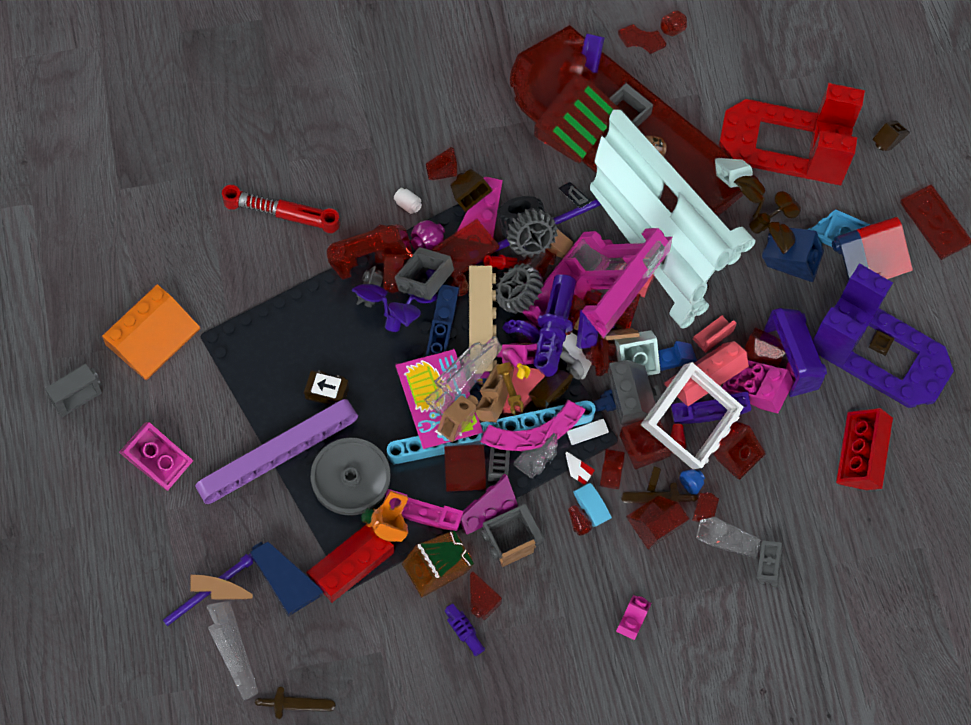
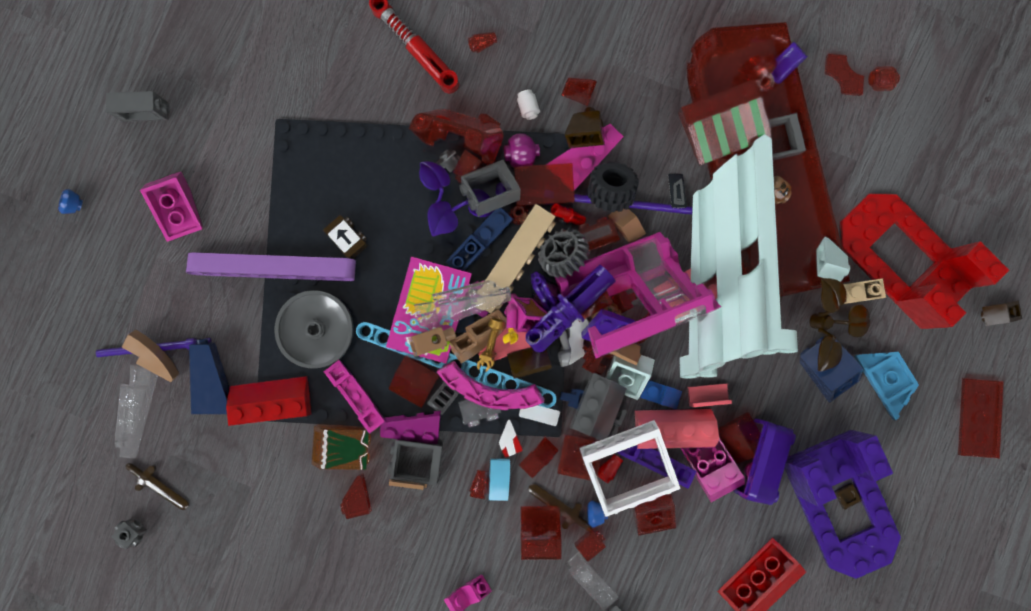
camera: 40 degrees right, 20 degrees up
(58, 507) = (69, 202): none -> blue cone
(151, 332) = (235, 91): orange slope -> none
(335, 176) = (481, 41): none -> clear red cone
(388, 522) = (312, 393): orange piece -> none
(464, 629) = (325, 515): dark purple hinge -> none
(523, 241) = (607, 210): dark grey gear -> none
(653, 479) = (565, 491): dark brown tile -> none
(774, 182) = (865, 291): none -> tan slope
(877, 247) = (902, 414): door -> none

